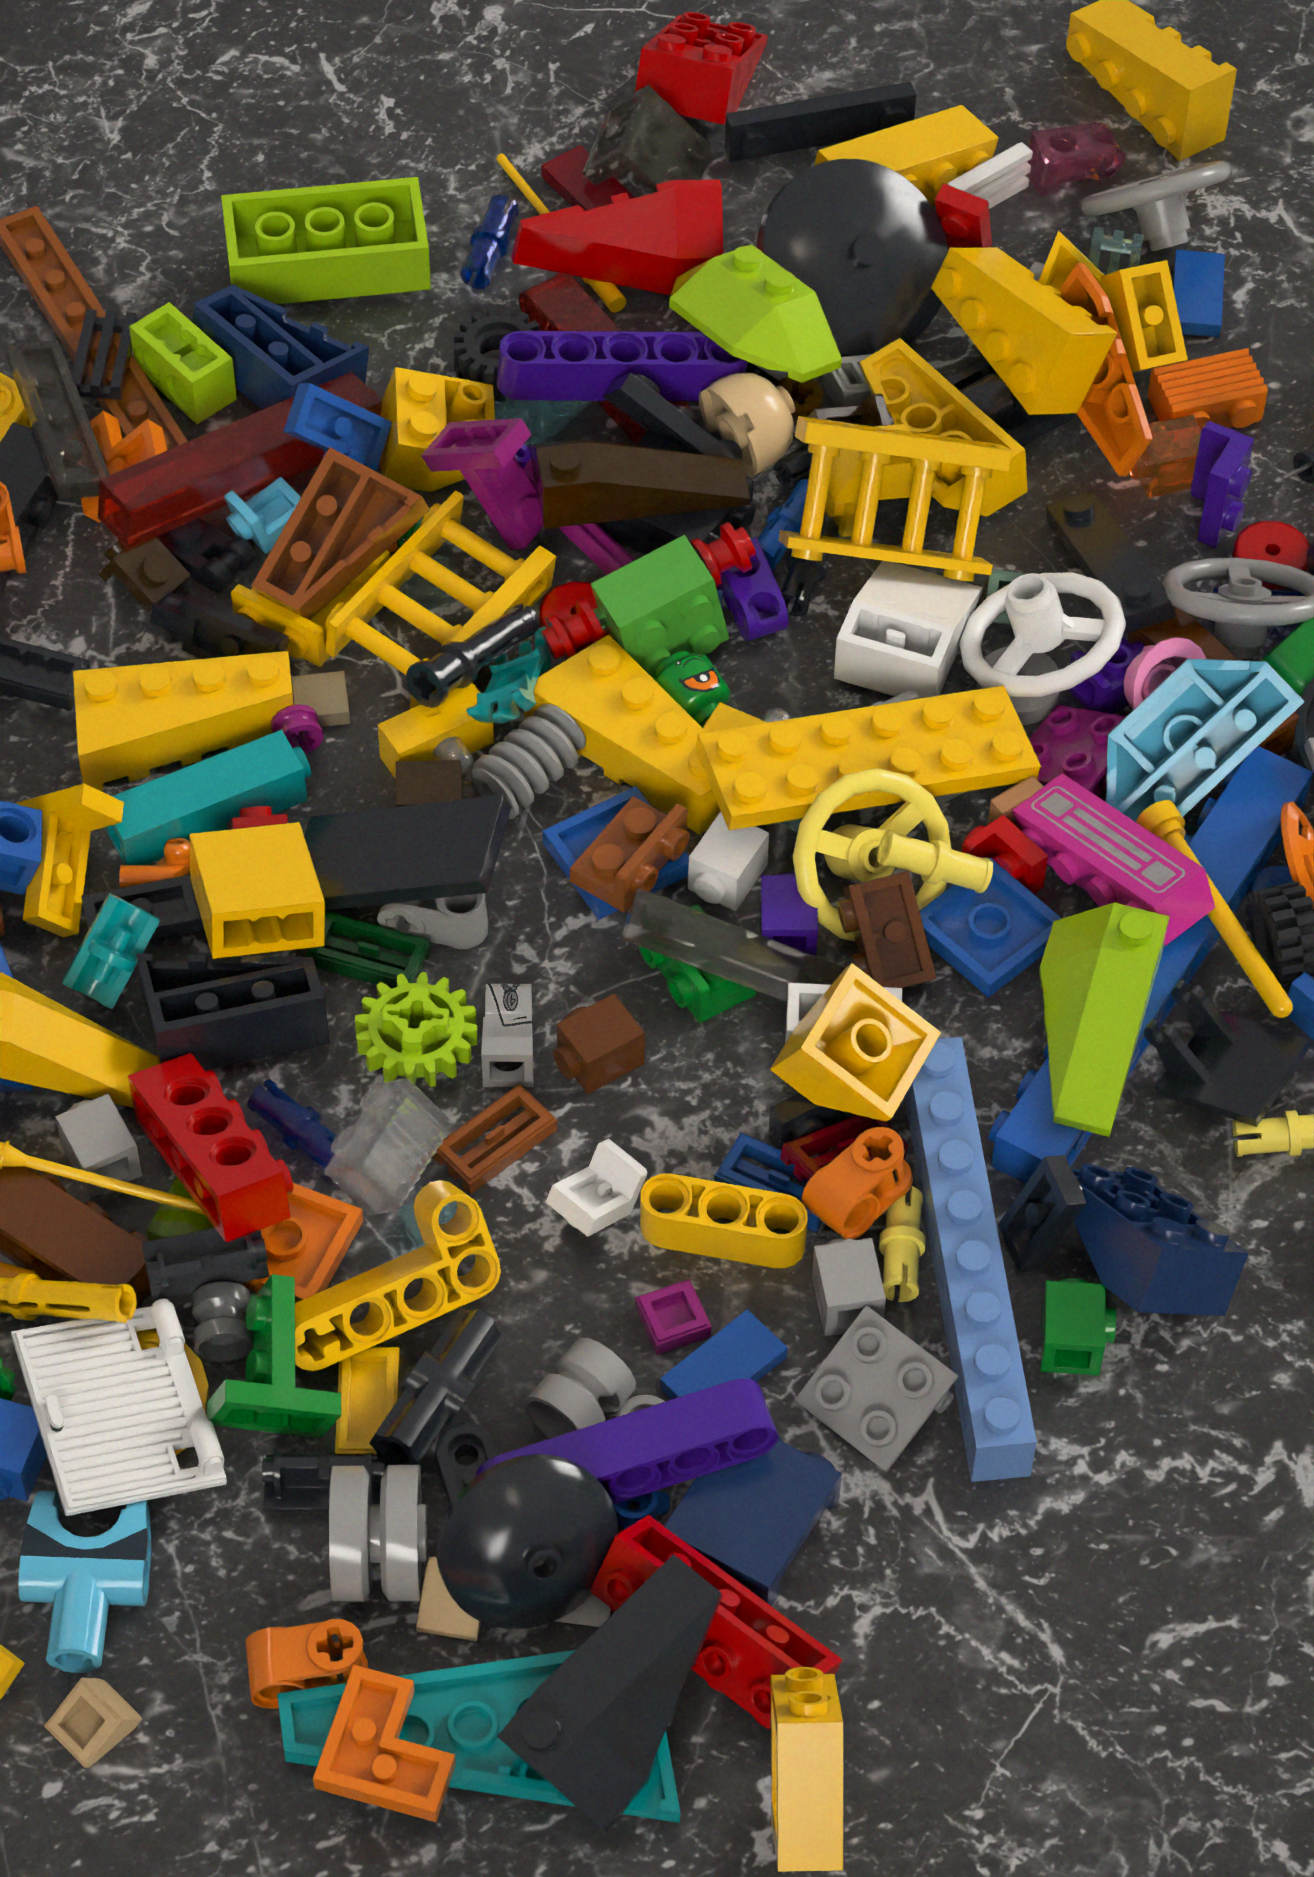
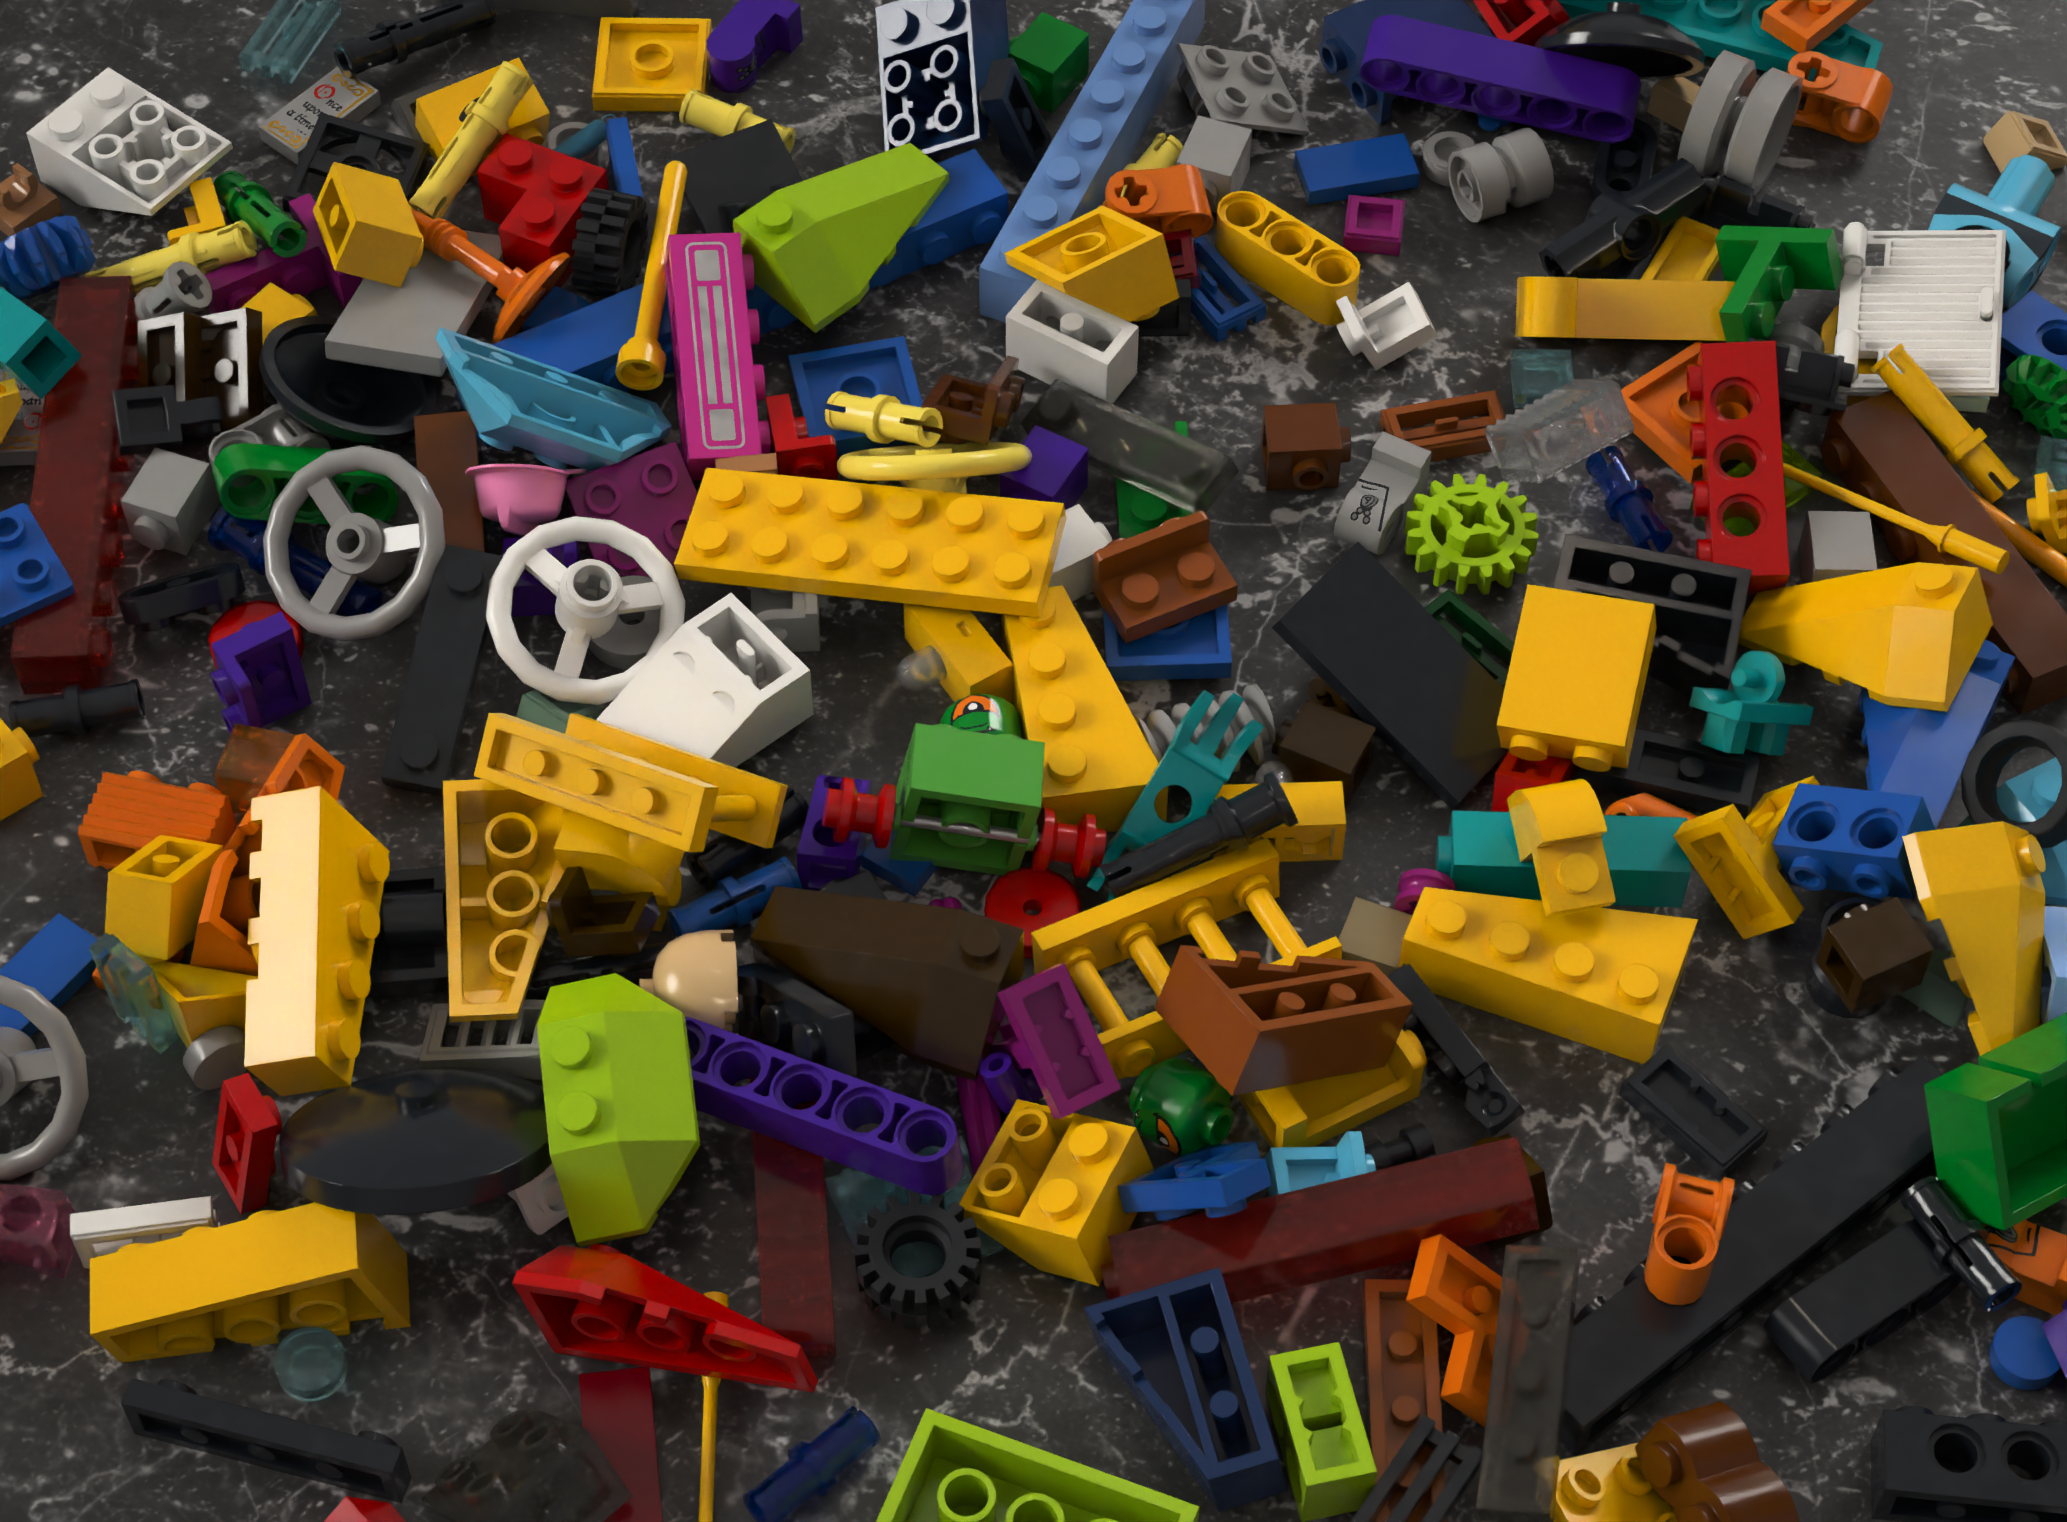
camera: 150 degrees left, 0 degrees up
(207, 736) = (1562, 834): none -> yellow brick

